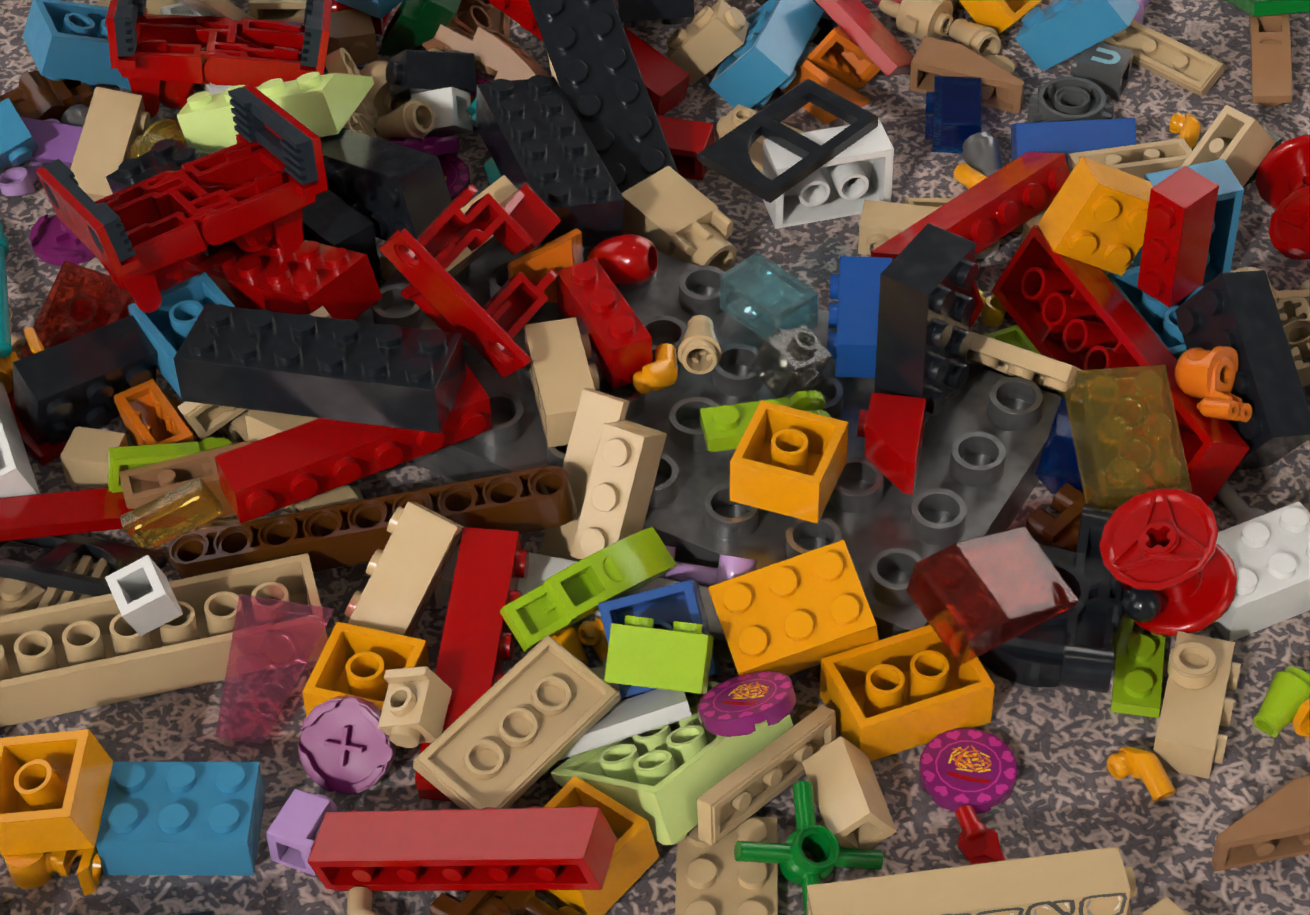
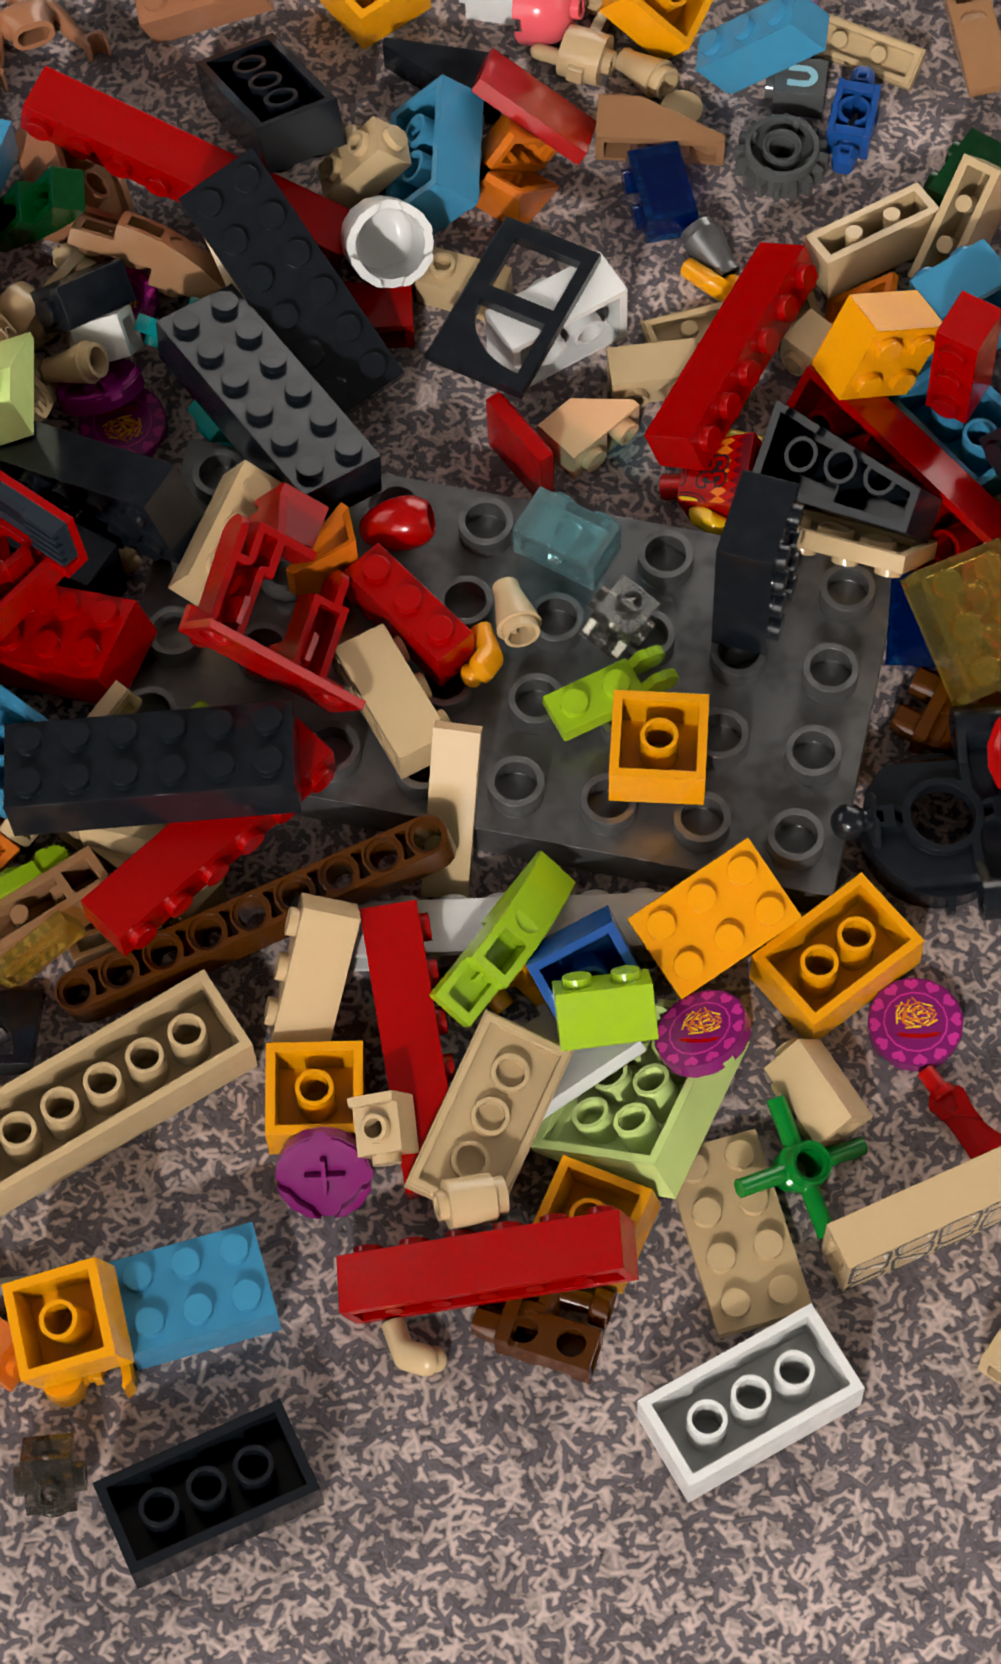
camera: 15 degrees left, 20 degrees up
(143, 595) = (74, 1081): white brick -> none
(264, 663) = (211, 1107): clear pink wing -> none
(296, 828) = (314, 1274): lavender brick -> none
(467, 784) = (471, 1200): none -> tan brick
(618, 486) = (496, 821): tan brick -> none
(679, 220) = (425, 436): tan piece -> none
(699, 80) = (387, 241): none -> white cylinder
(728, 568) = (631, 873): lavender bar -> none
(756, 232) = (519, 445): none -> red tile
(763, 776) = (737, 1094): tan tile -> none
(817, 253) = (587, 429): none -> light nougat slope
(855, 315) = (668, 534): blue brick -> none
(894, 436) = (749, 683): red slope -> none
(988, 591) = (897, 844): clear red slope -> none
(1038, 315) = (843, 478): none -> black wedge
(1071, 136) = (797, 207): blue brick -> none
(1145, 95) = (853, 142): none -> blue piece
(1187, 127) = (912, 151): light orange arm -> none

